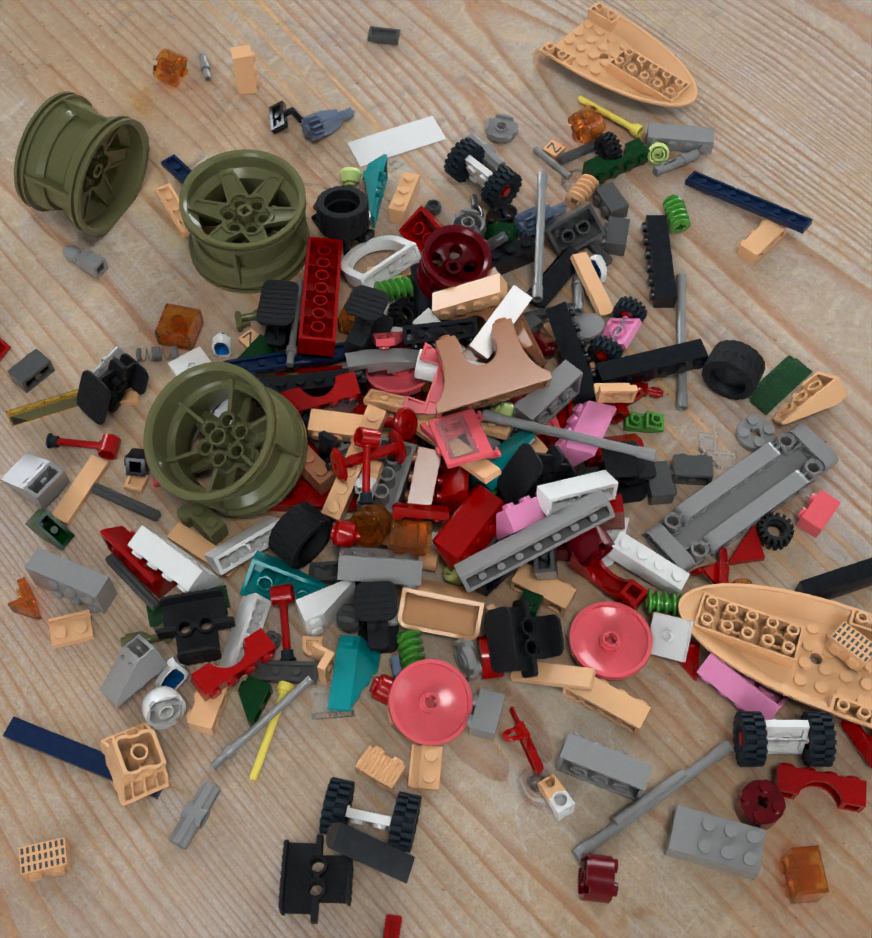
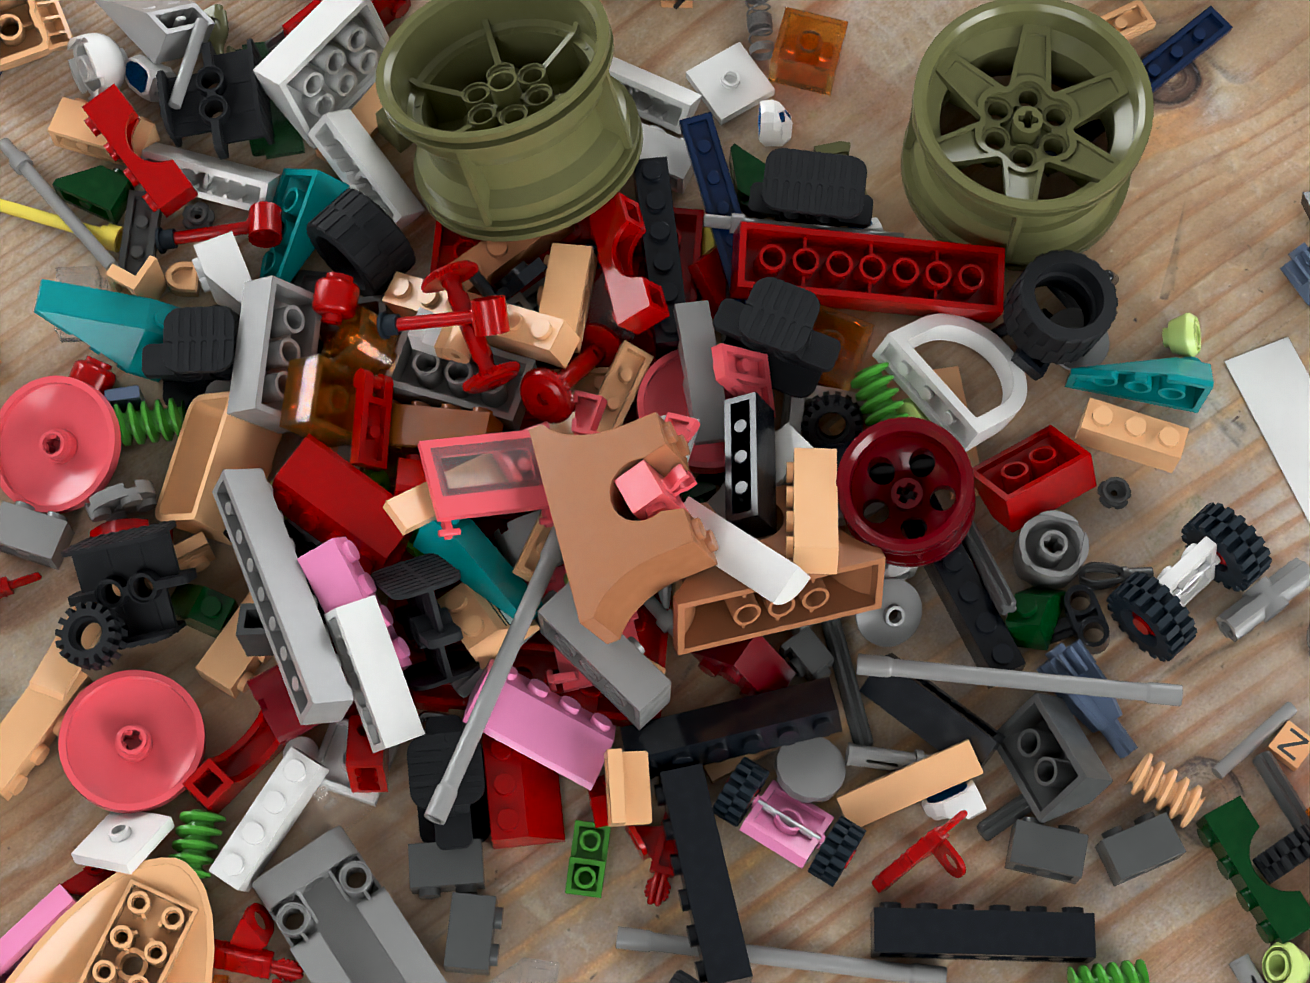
camera: 90 degrees right, 10 degrees up
(171, 639) = (188, 63): none -> light grey bar
(478, 350) = (650, 492): none -> coral brick
(568, 645) = (76, 624): none -> black tyre
(625, 278) = (934, 843): none -> red piece

